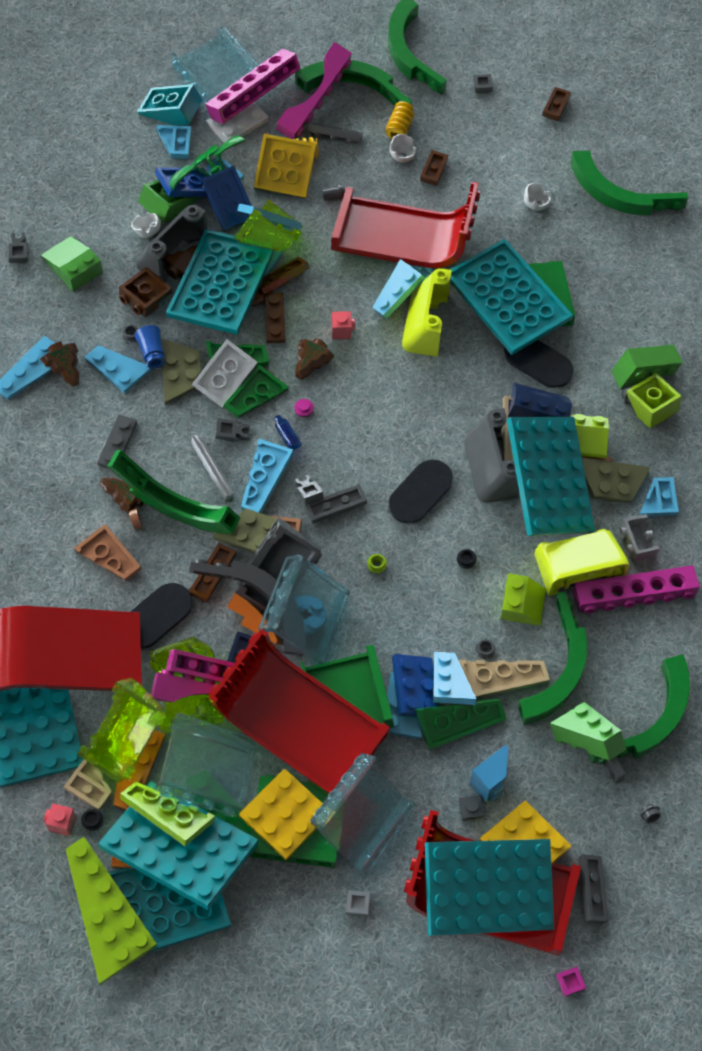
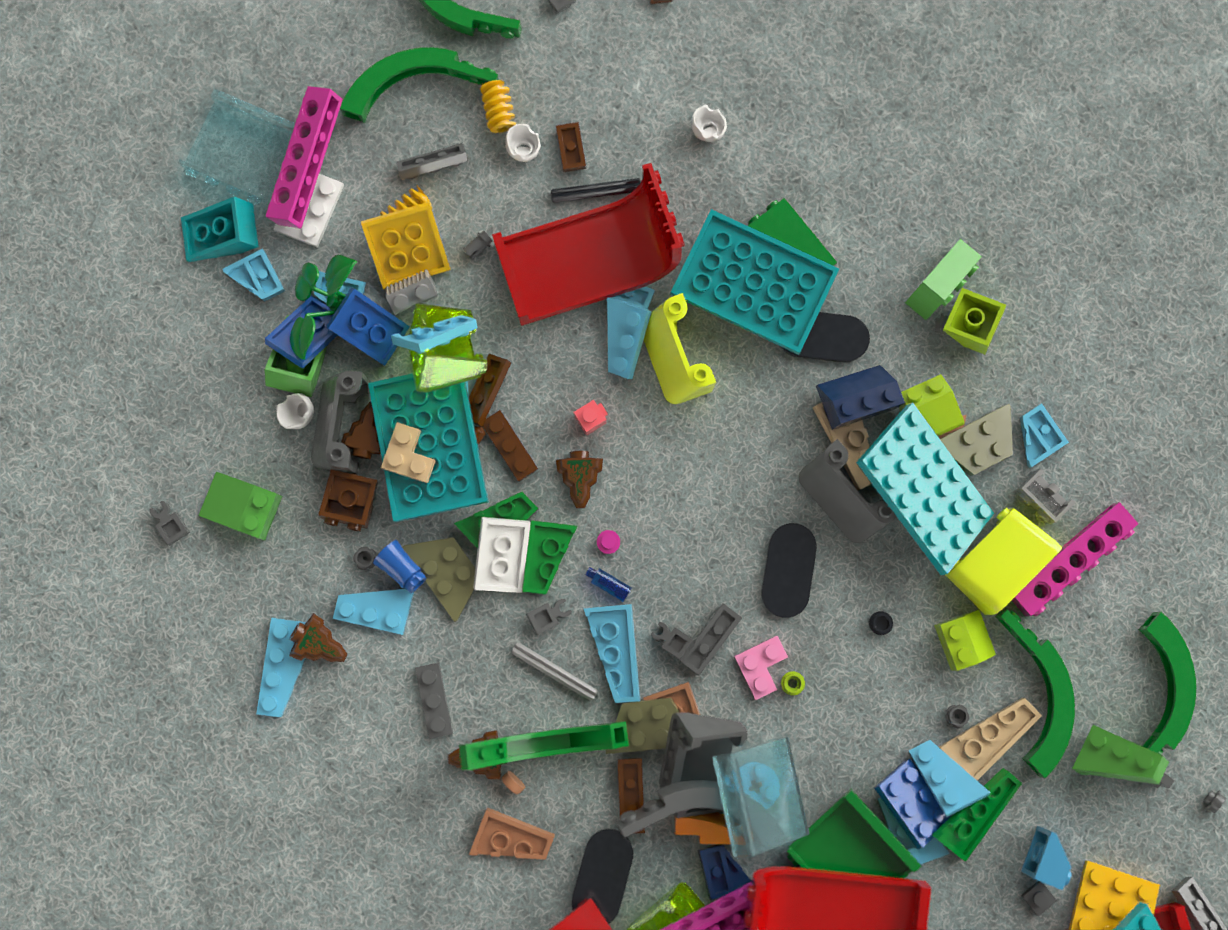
camera: 30 degrees left, 20 degrees up
(199, 276) = (401, 456): none -> tan plate
(277, 194) = (411, 291): none -> light grey brick
(295, 118) = (381, 74): dark pink arch -> none
(359, 536) = (754, 666): none -> bright pink plate
(430, 199) = (594, 190): none -> black axle
(617, 197) = (788, 74): green arch -> none

